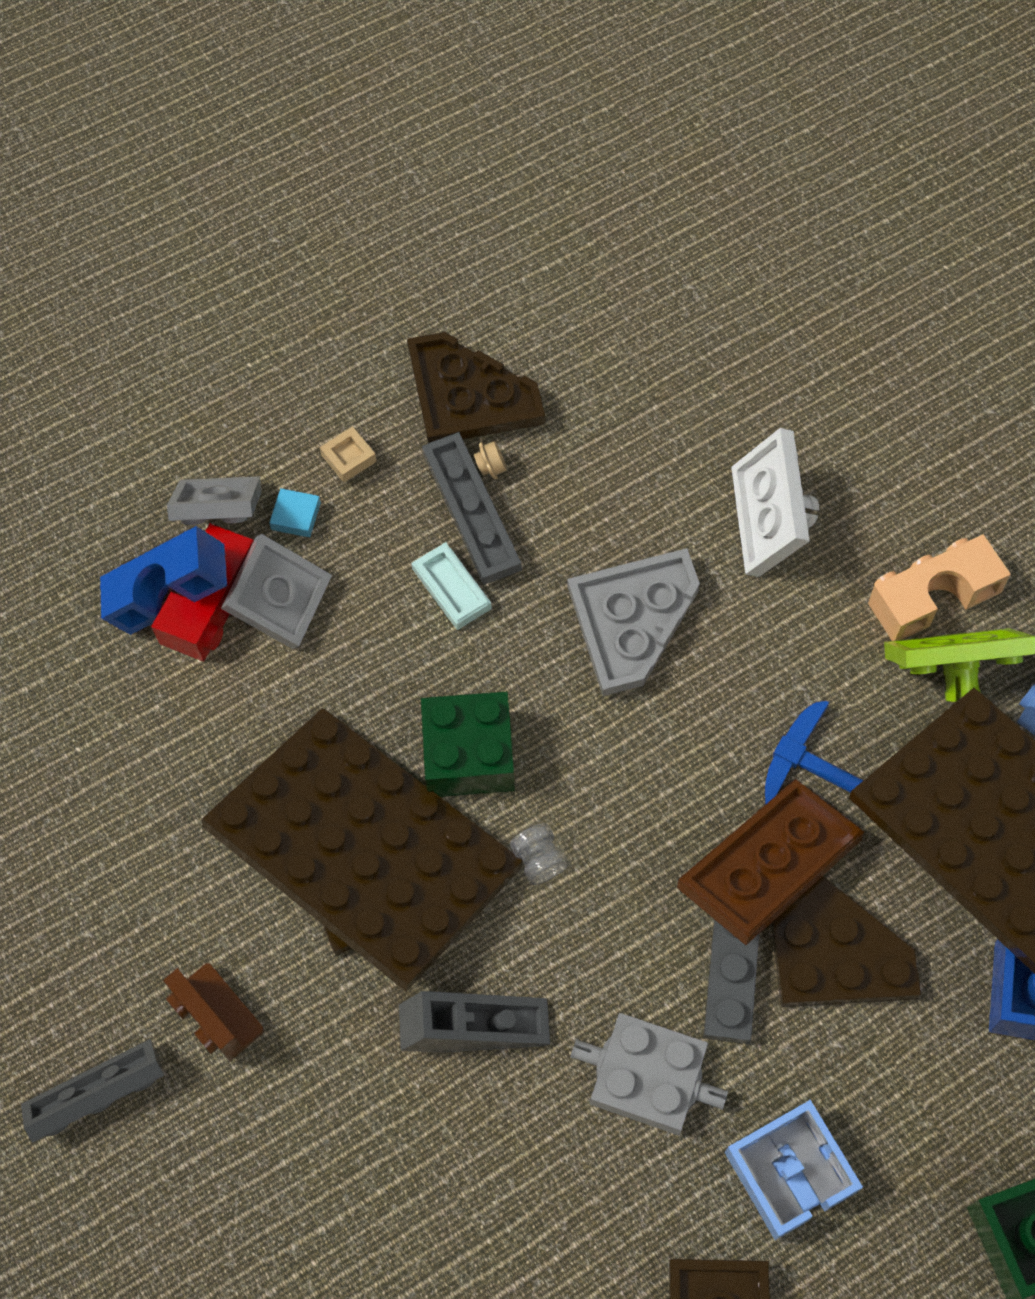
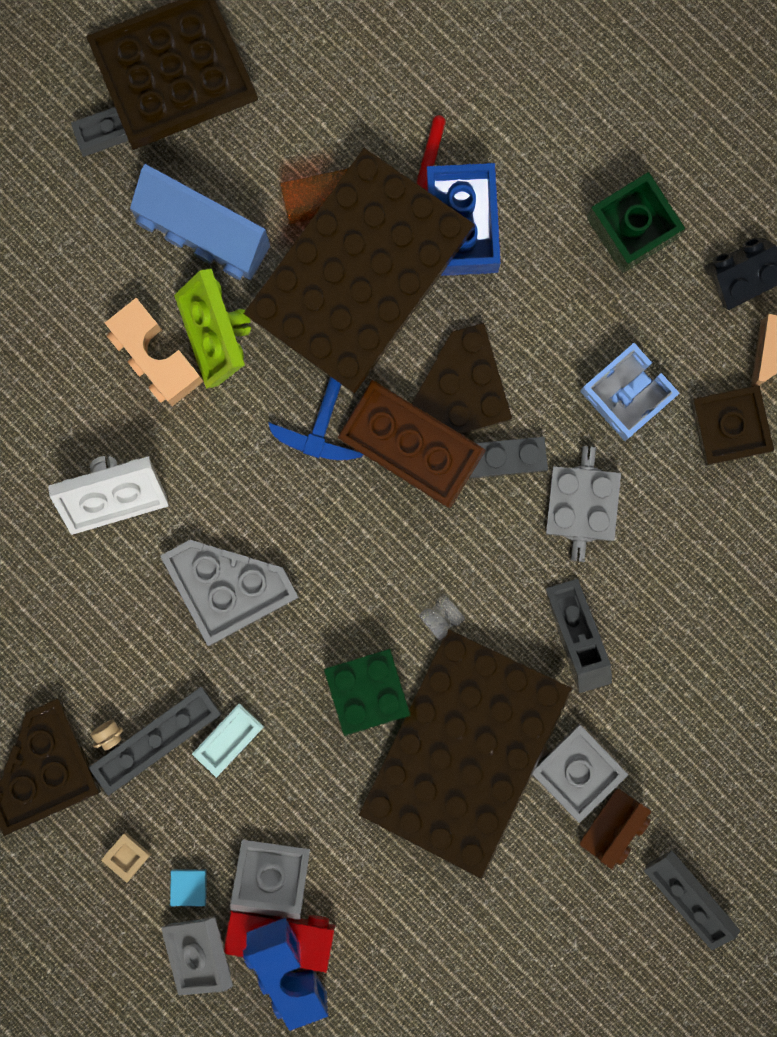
camera: 105 degrees left, 20 degrees up
(297, 983) = (579, 773): none -> light grey plate

